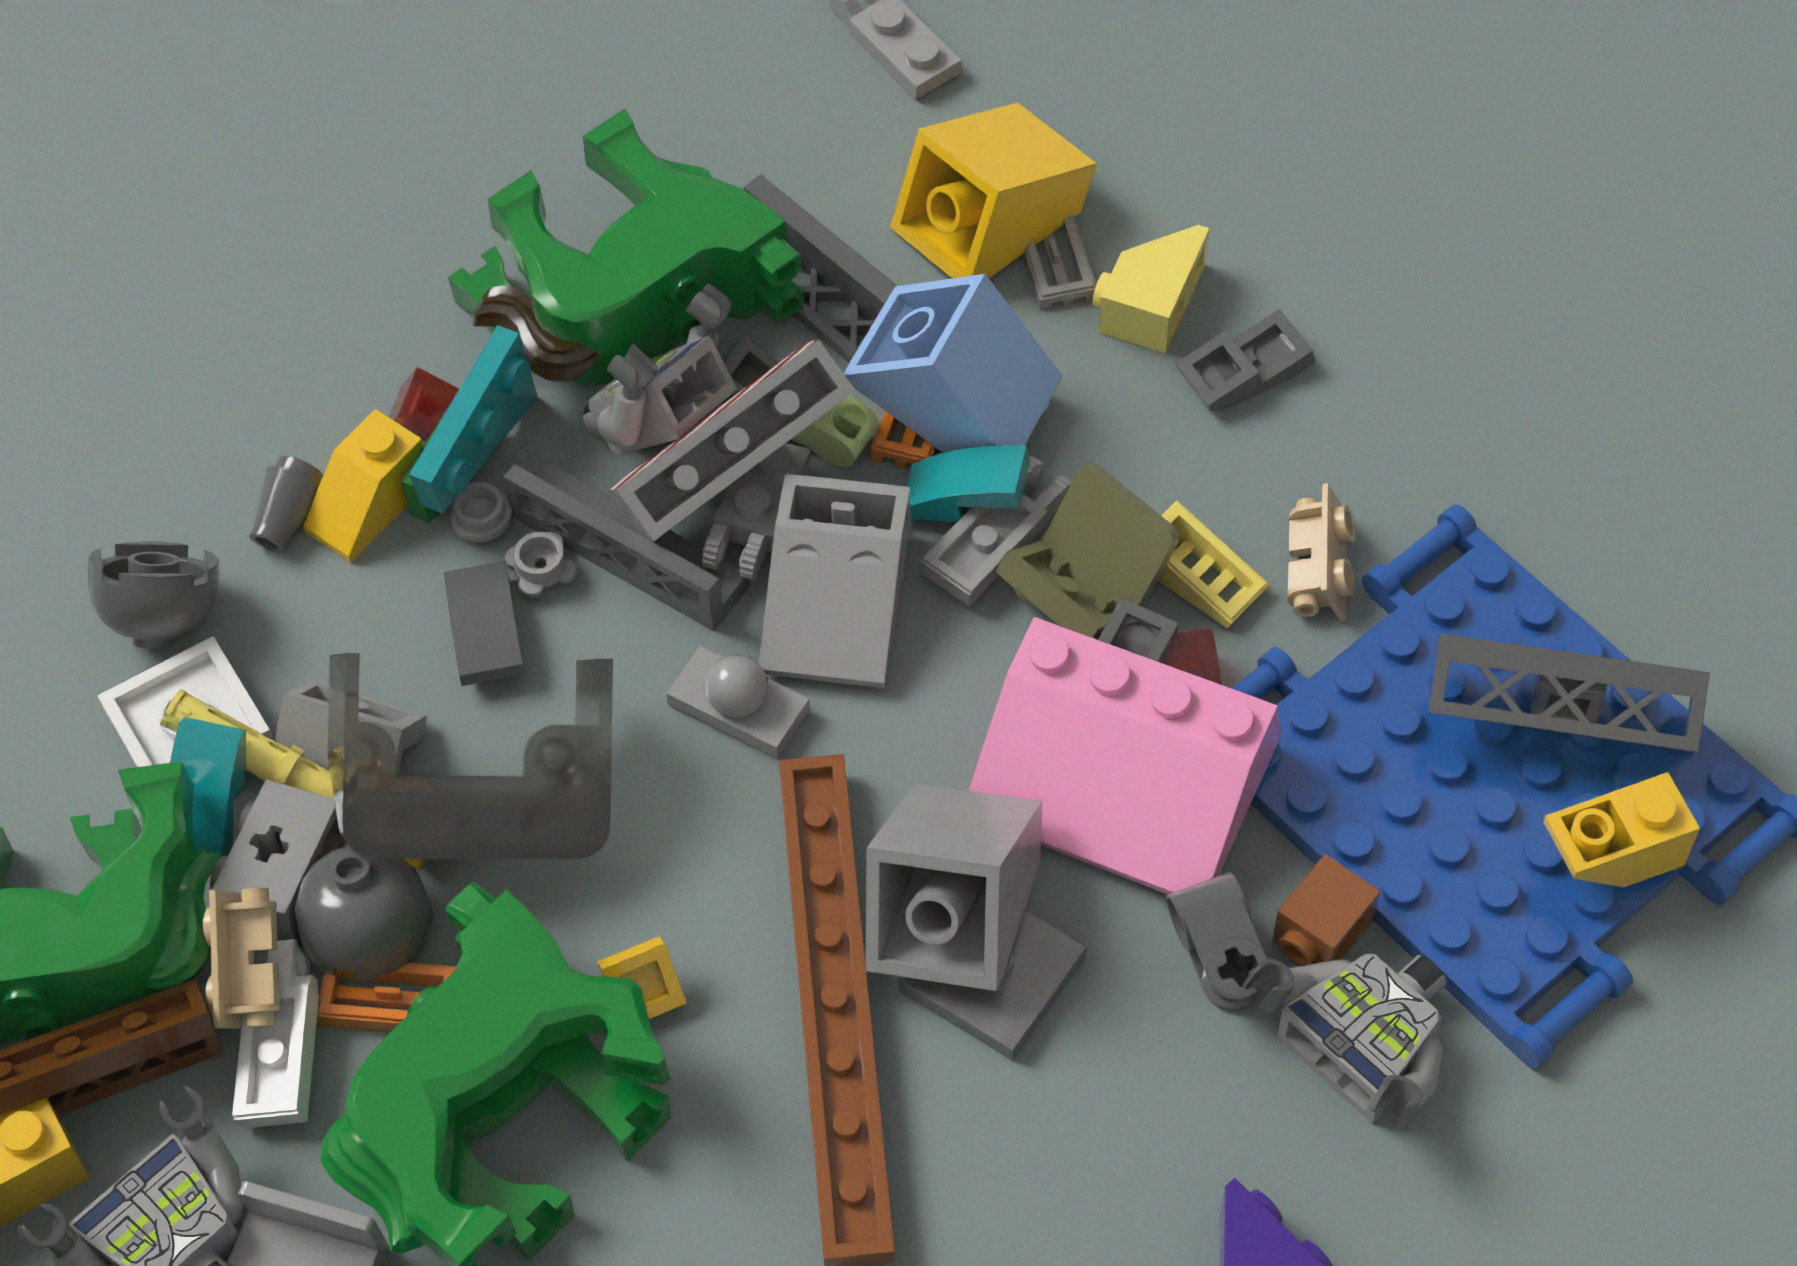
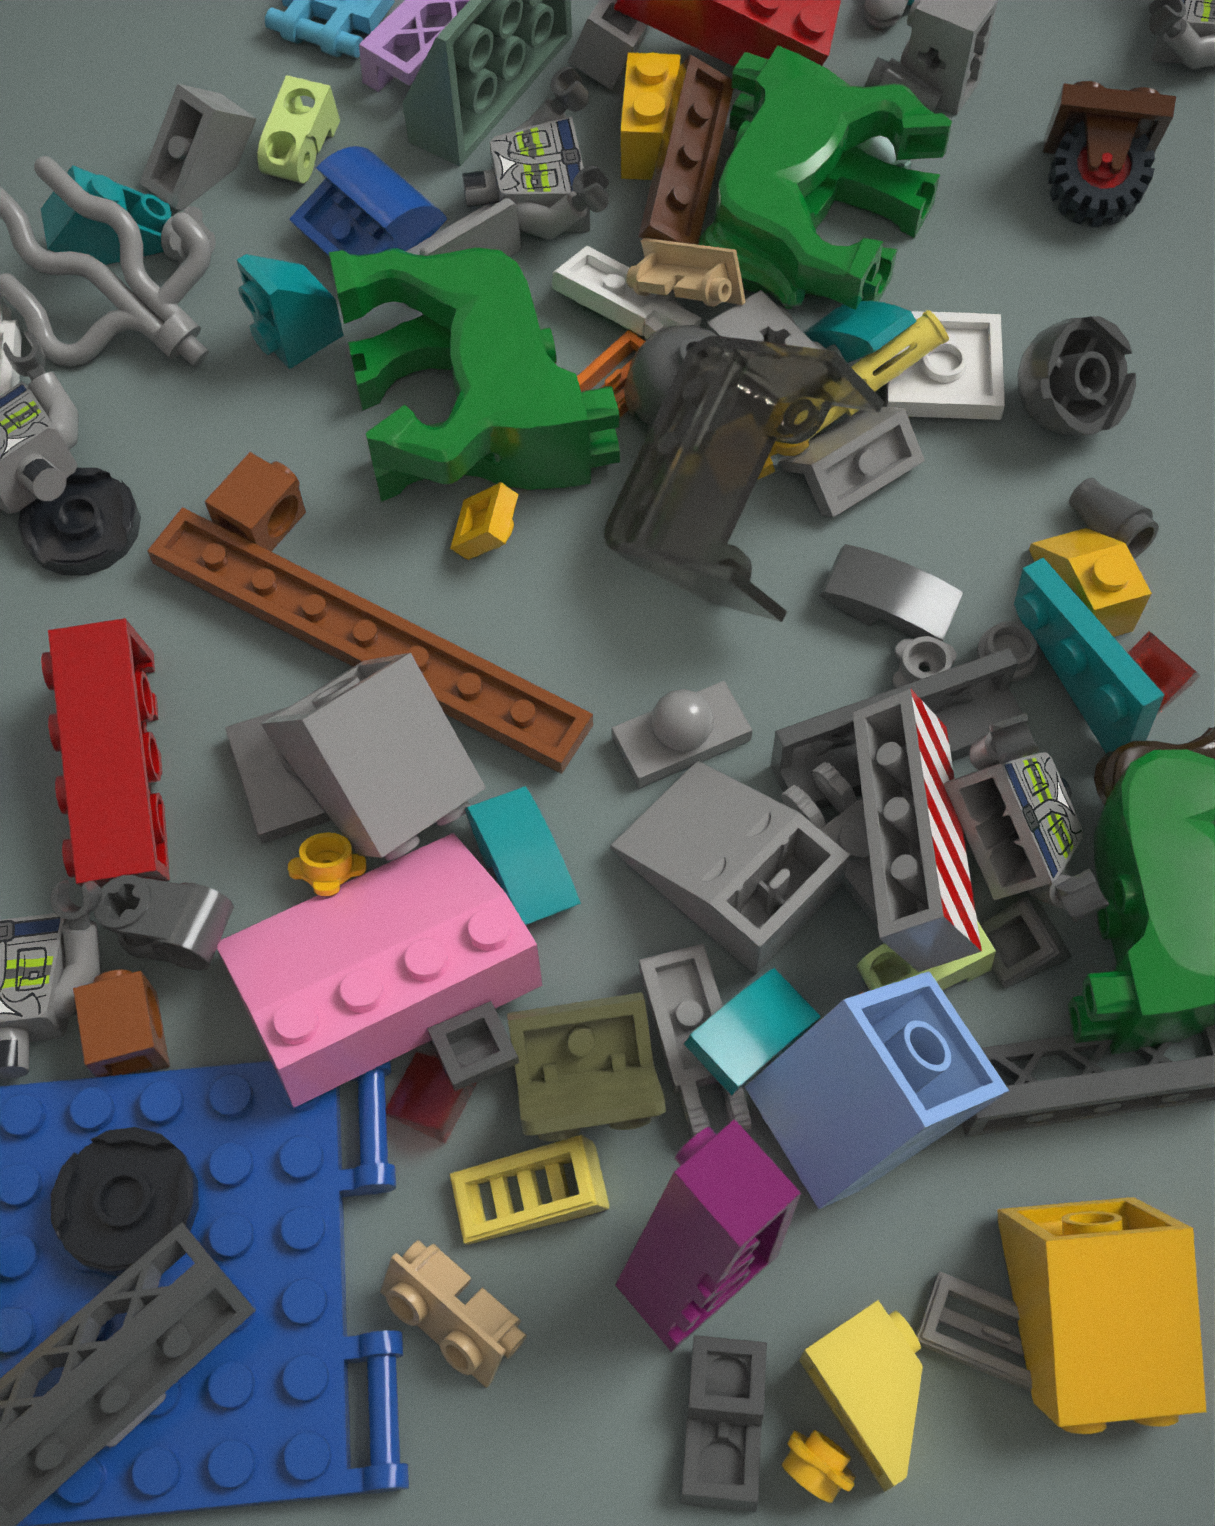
camera: 125 degrees right, 5 degrees up
(767, 1196) = (258, 501): none -> dark orange brick
(943, 733) = (522, 854): none -> teal slope
(1052, 869) = (326, 863): none -> yellow plate
(1113, 1106) = (106, 752): none -> red wedge
(1151, 378) = (708, 1232): none -> magenta wedge
(1227, 291) = (818, 1465): none -> yellow plate
(1443, 796) = (122, 1198): none -> black tile

